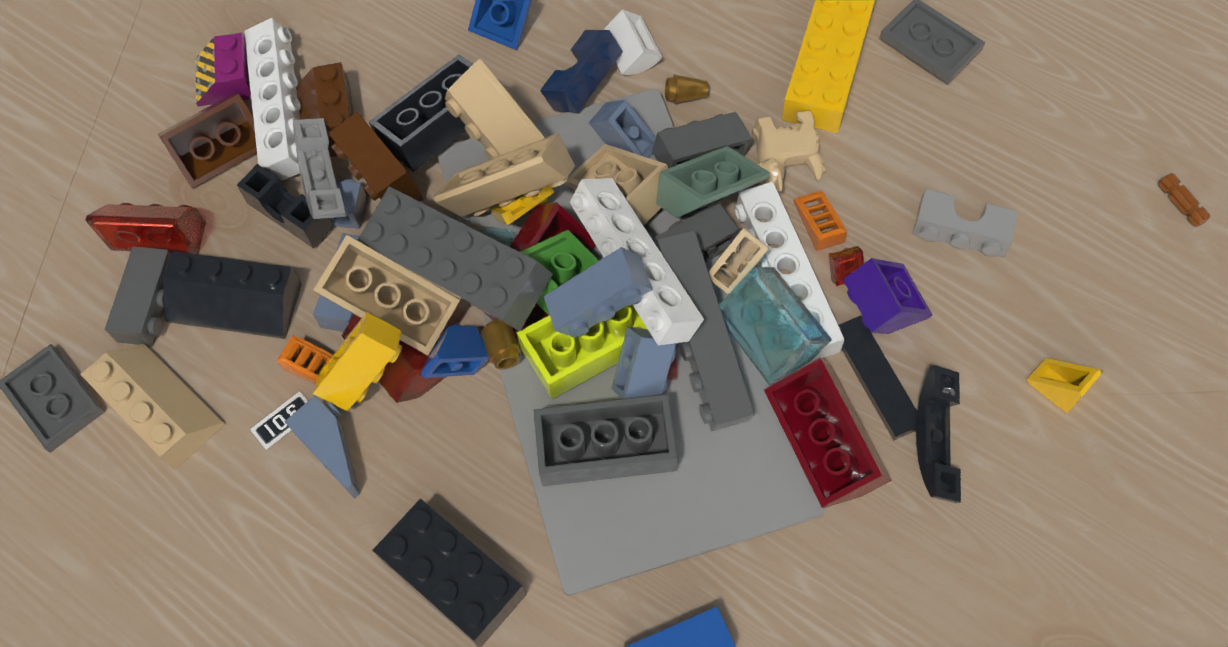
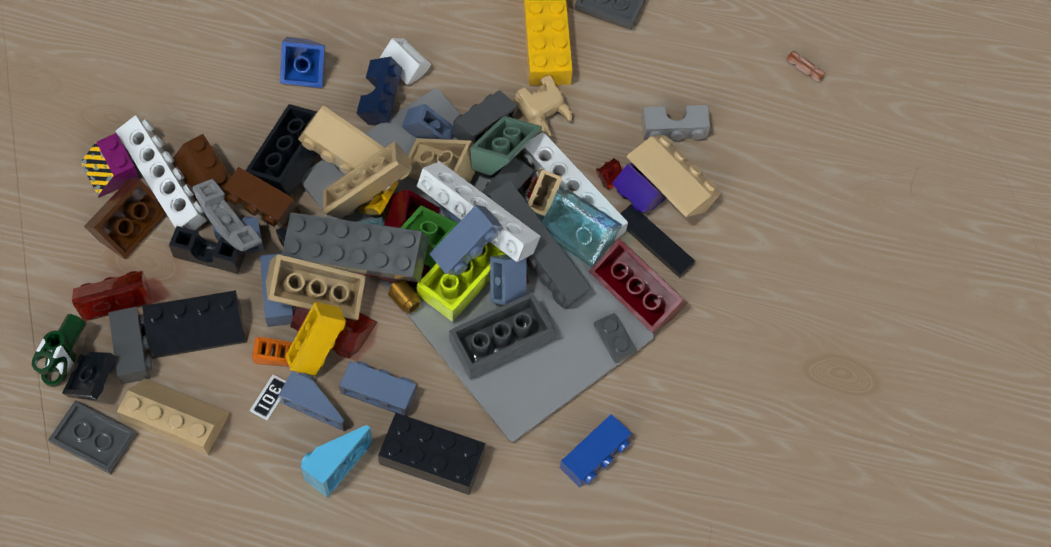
camera: 30 degrees left, 0 degrees up
(52, 275) = (58, 349): none -> dark green connector
(72, 322) = (89, 375): none -> black plate
(313, 537) = (333, 460): none -> medium azure slope
(419, 456) = (378, 388): none -> sand blue brick
(456, 353) = (376, 312): blue slope -> none
(684, 88) = (455, 82): pearl gold cone -> none
(766, 496) = (614, 338): none -> dark grey plate
(820, 239) = (586, 161): orange slope -> none
(935, 295) = (674, 175): none -> tan slope
(938, 394) = (697, 240): black slope -> none
(1063, 381) = (770, 207): yellow slope -> none

